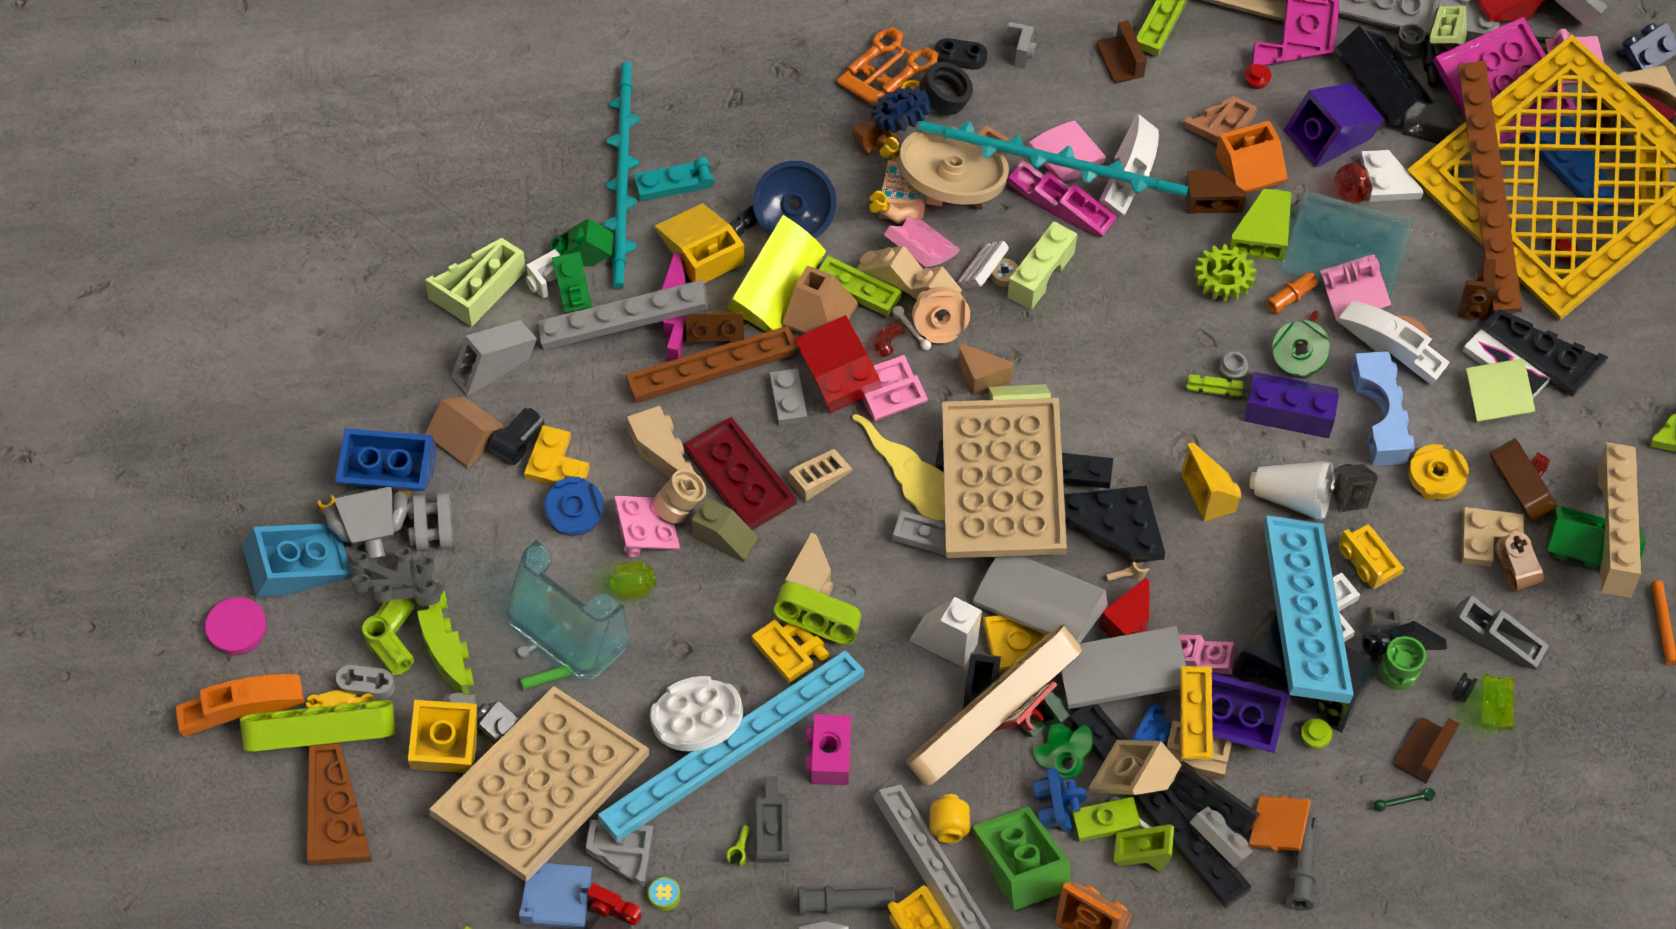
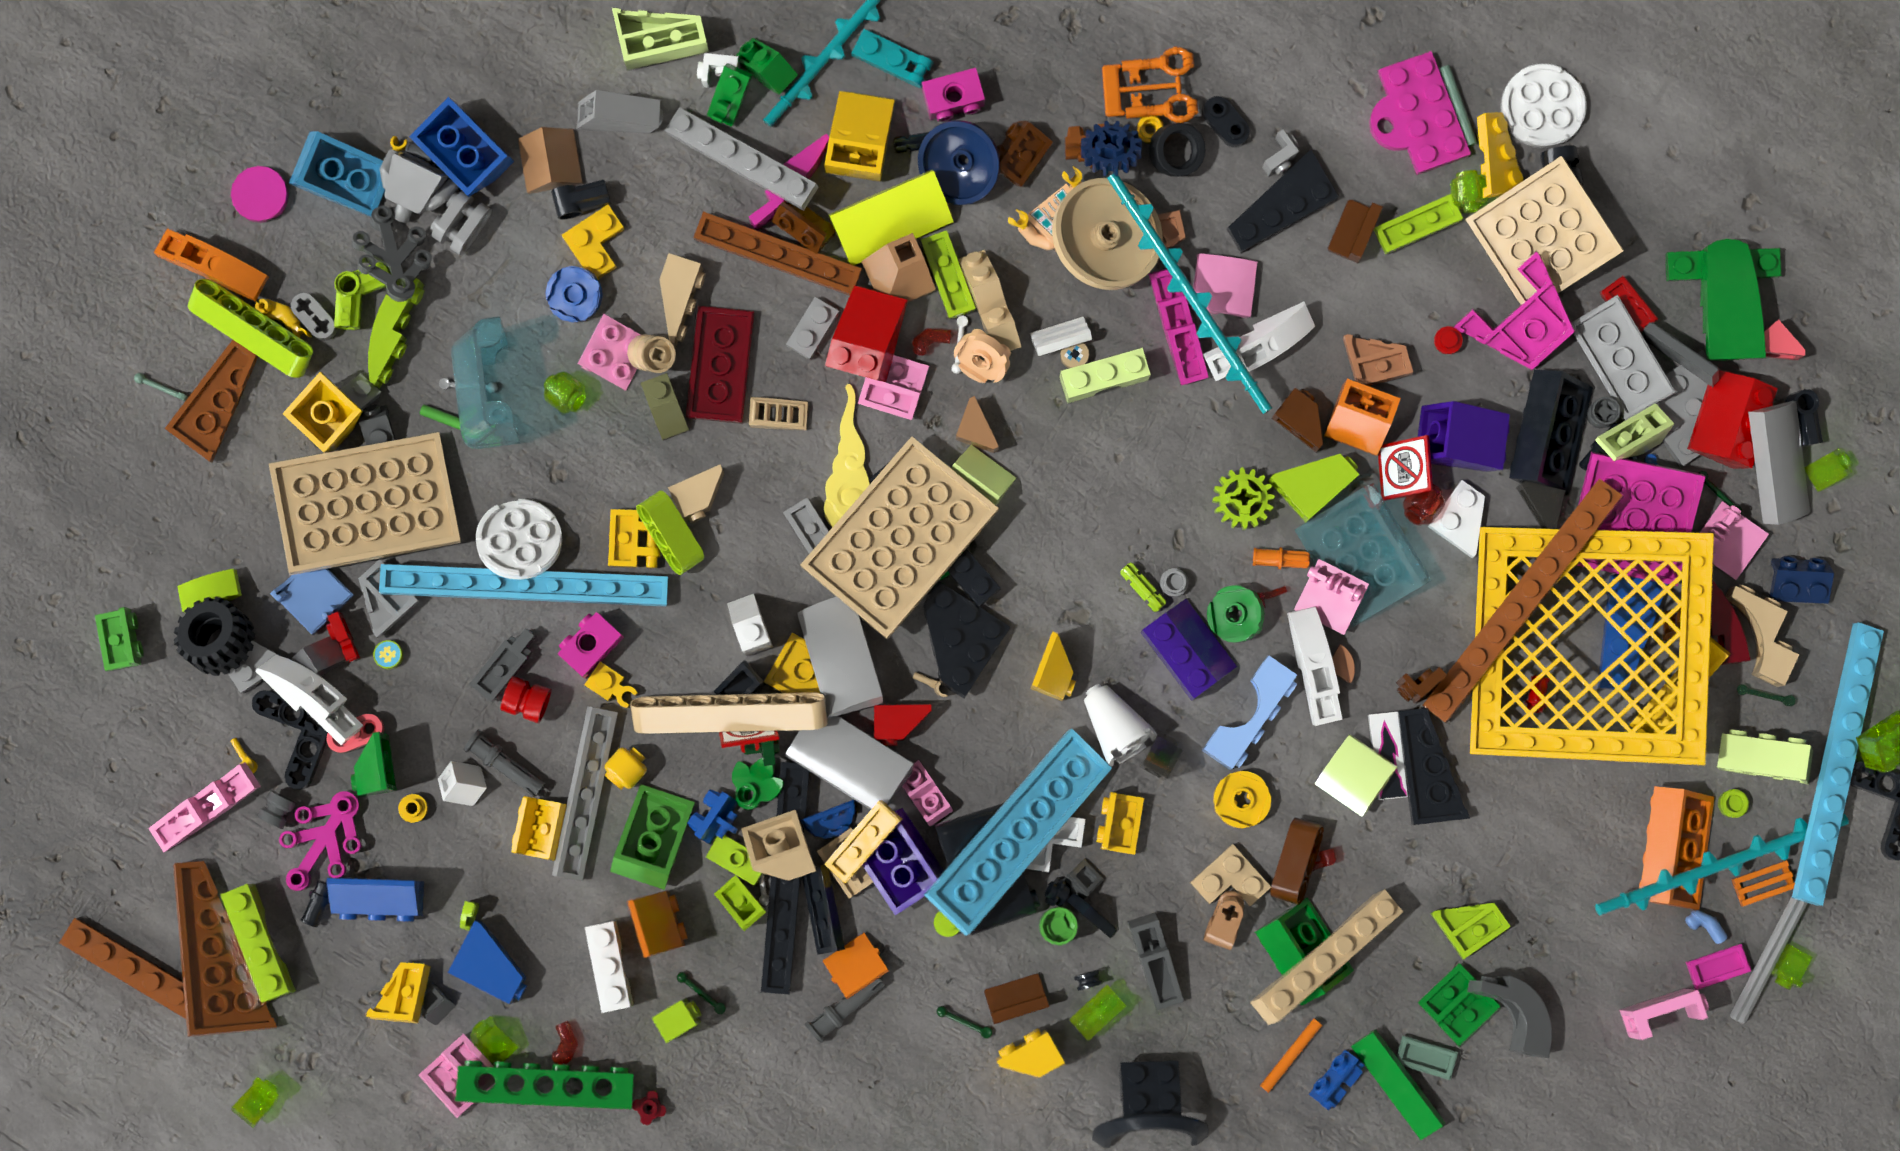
camera: 40 degrees right, 25 degrees up
(248, 843) = (140, 378): none -> sand green hinge
(740, 846) = (468, 663): lime hand -> none
(744, 167) = (963, 82): none -> dark pink brick
(813, 832) = (525, 699): none -> red wheel
(836, 164) = (1022, 151): none -> reddish brown bracket
(870, 771) = (607, 683): none -> yellow plate
(922, 242) = (1030, 277): bright pink slope -> none
(1055, 73) = (1287, 201): none -> black wing
(1229, 844) = (802, 941): light grey plate -> none
(1318, 166) = (1405, 468): none -> piece
(1484, 769) = (1033, 1057): none -> yellow slope
(1607, 725) = (1150, 1102): none -> black piece

